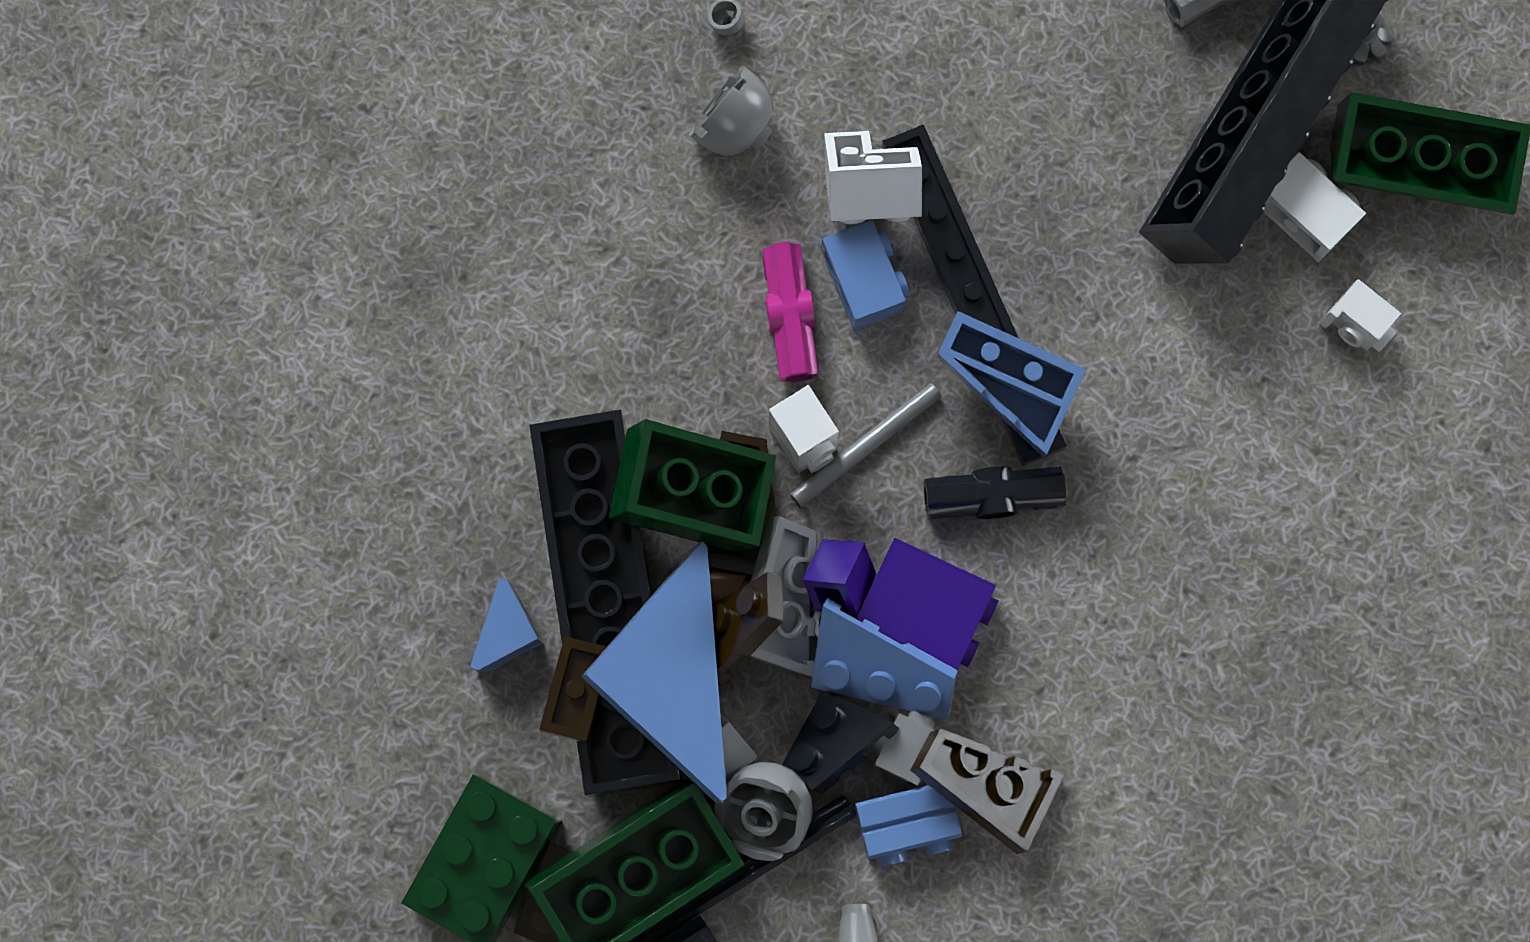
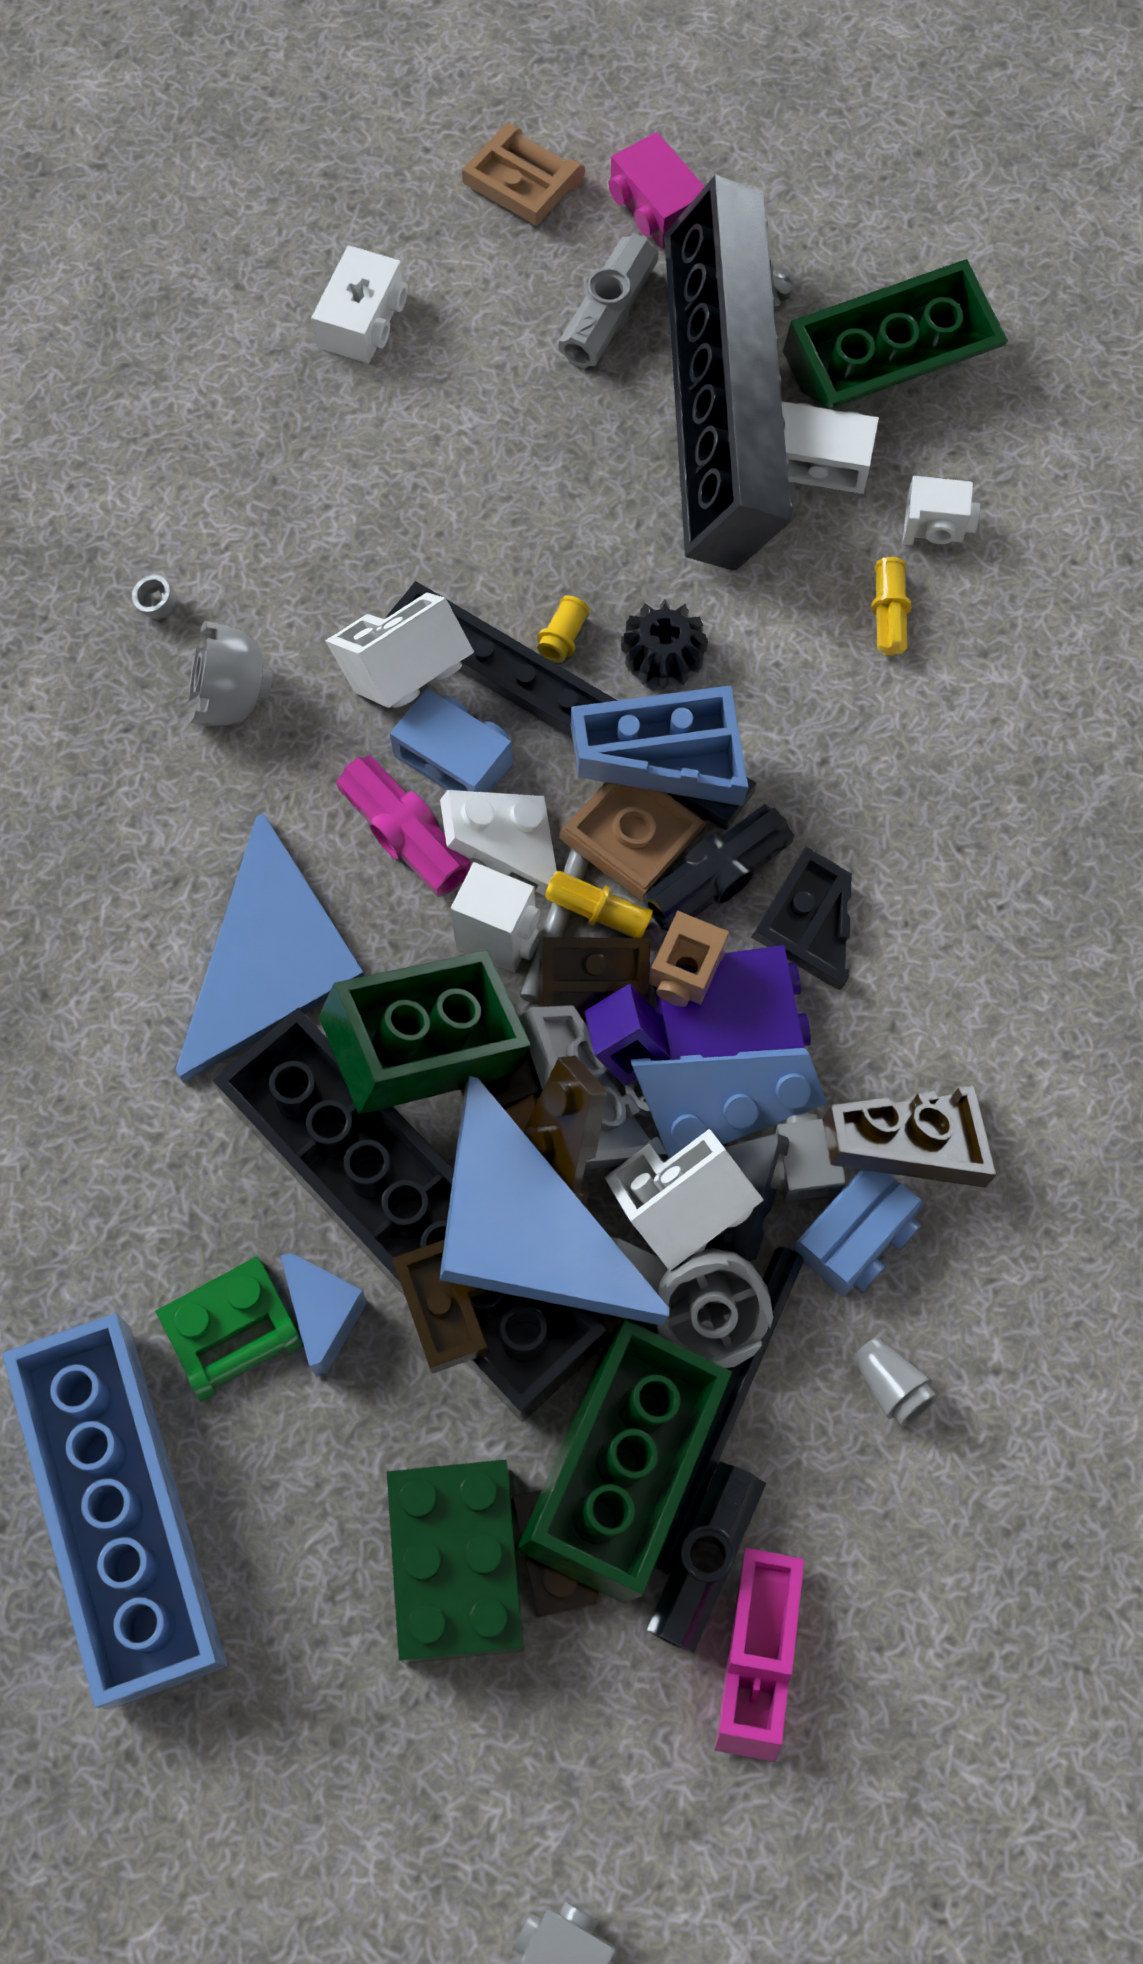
camera: 35 degrees left, 10 degrees down
(285, 677) = (113, 1513): none -> medium blue brick
(439, 586) = (220, 1313): none -> green plate
(635, 351) = (268, 959): none -> medium blue tile
(790, 725) = (685, 1199): none -> white brick
(848, 510) = (590, 969): none -> dark brown wing
(856, 365) = (502, 832): none -> white wing
(888, 464) = (598, 904): none -> yellow axle
(926, 543) = (692, 944): none -> medium nougat brick
(949, 427) = (632, 834): none -> medium nougat plate
(1009, 231) = (558, 638): none -> yellow pin
(1035, 572) = (811, 918): none -> black wing
(1088, 303) = (675, 659): none -> black gear
(1270, 370) = (891, 605): none -> yellow axle

